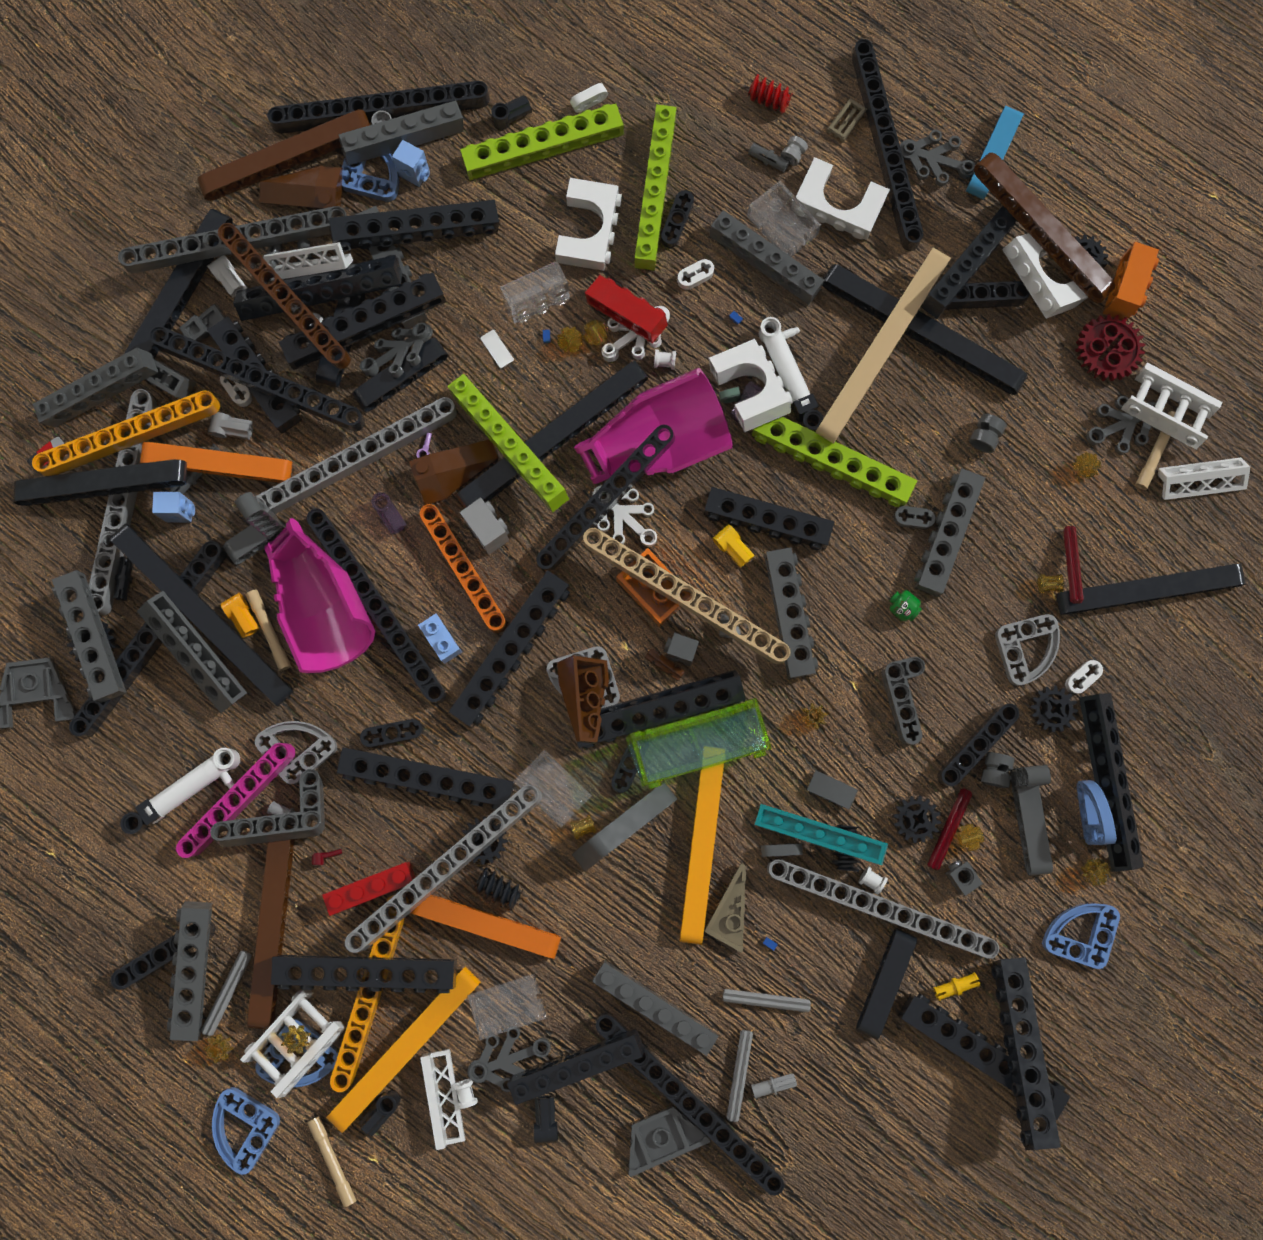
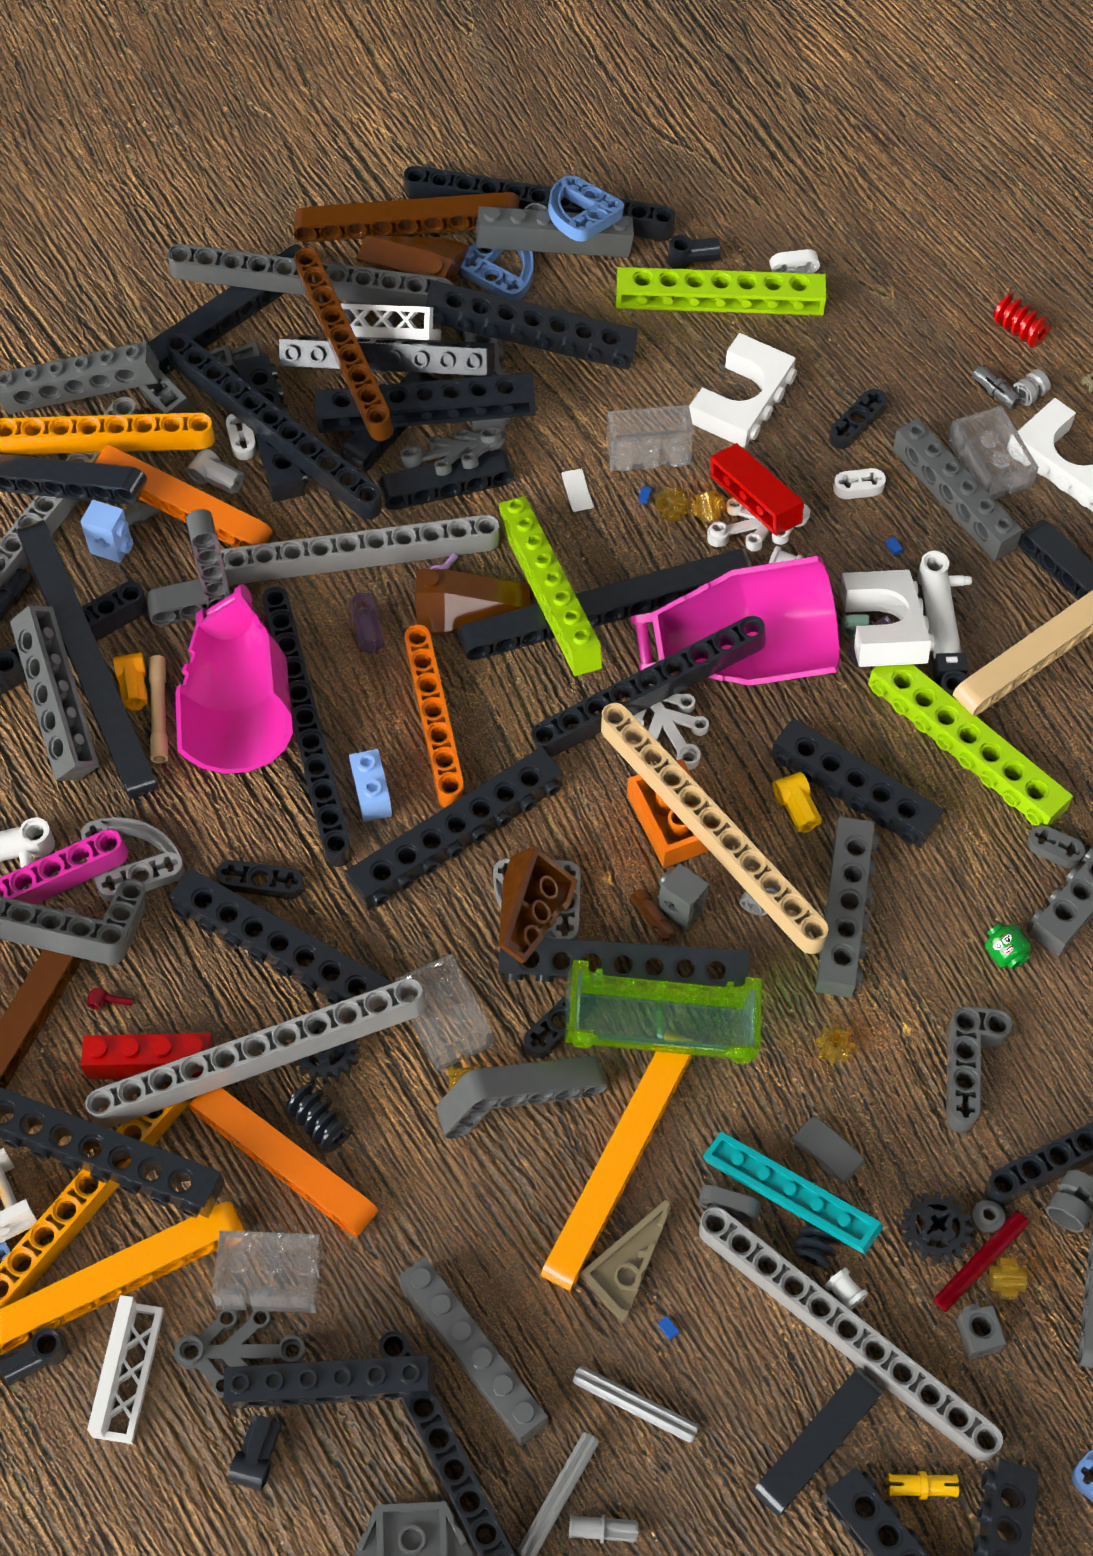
camera: 20 degrees right, 20 degrees down
(226, 274) = (283, 314): white piece -> none
(411, 163) = (552, 264): light blue brick -> none
(434, 103) = (600, 212): none -> medium blue beam
(465, 1093) = (159, 1373): white bush -> none
(483, 523) = (482, 671): light grey brick -> none
(655, 187) = (841, 377): lime brick -> none
(939, 798) = (981, 1222): none -> dark grey plate

